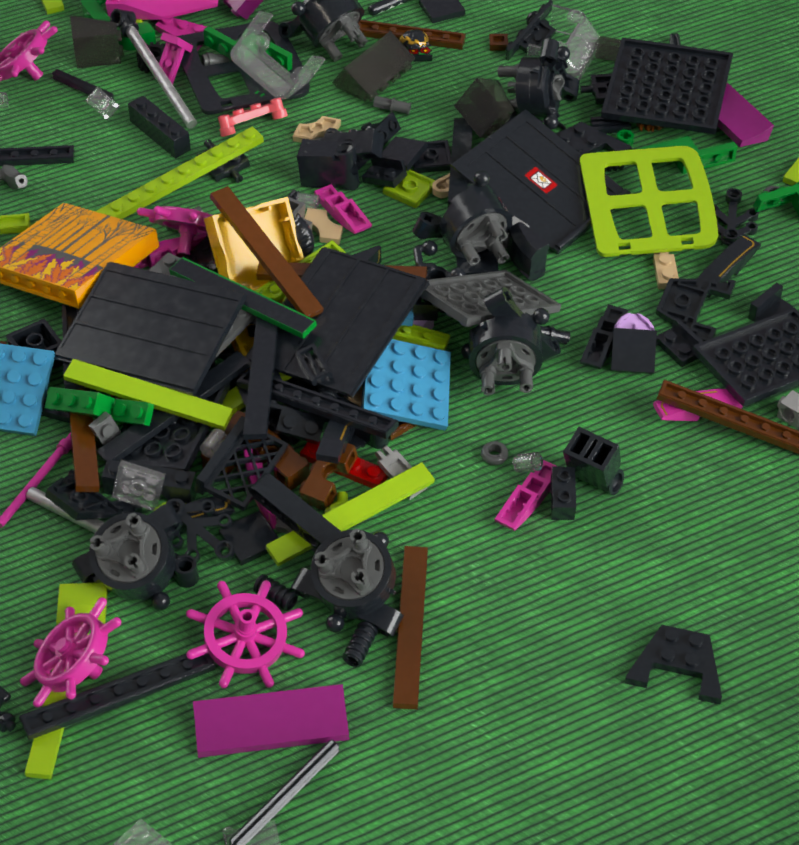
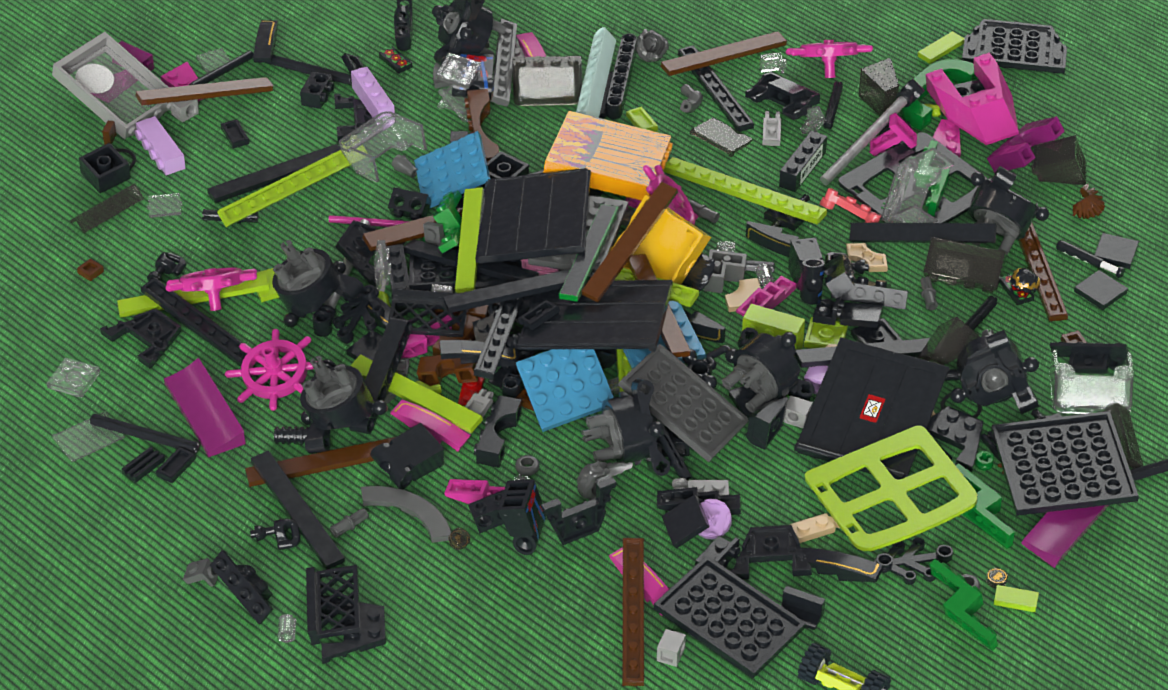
camera: 70 degrees right, 5 degrees down
(28, 438) = (411, 200): none -> black brick
(53, 106) = (784, 92): none -> black bracket
(74, 174) = (721, 136): none -> clear smoke piece
(90, 135) = (771, 129): none -> light grey hinge
(104, 744) = (150, 328): none -> black wing
(265, 178) = (769, 237): none -> black slope
(323, 77) = (923, 232): none -> black tile
(327, 792) = (141, 462): none -> black tile
(351, 774) = (175, 465): none -> black tile
(397, 516) = (438, 427): none -> dark pink slope
(399, 213) = (774, 323): none -> lime brick
(438, 86) = (982, 312): none -> black axle
(450, 541) = (409, 456): none -> black piece
(459, 473) = (504, 415): none -> black arch
(482, 667) = (297, 509): none -> black tile
(514, 692) = (279, 529): none -> black piece
(515, 562) = (412, 504): none -> dark grey tile
(521, 625) = (348, 522): none -> dark grey axle
(548, 786) = (200, 571): none -> dark grey bracket
(551, 396) = (597, 472): none -> dark grey hair
(583, 329) = (703, 485): none -> light grey hinge
(583, 535) = (459, 538): none -> clear smoke tile
(595, 742) = (245, 585): none -> black bracket
(609, 424) = (582, 519): none -> black wing
(646, 686) = (317, 589): none -> black fence
(666, 721) = (286, 628): none -> clear piece
(772, 175) = (996, 577): none -> tile

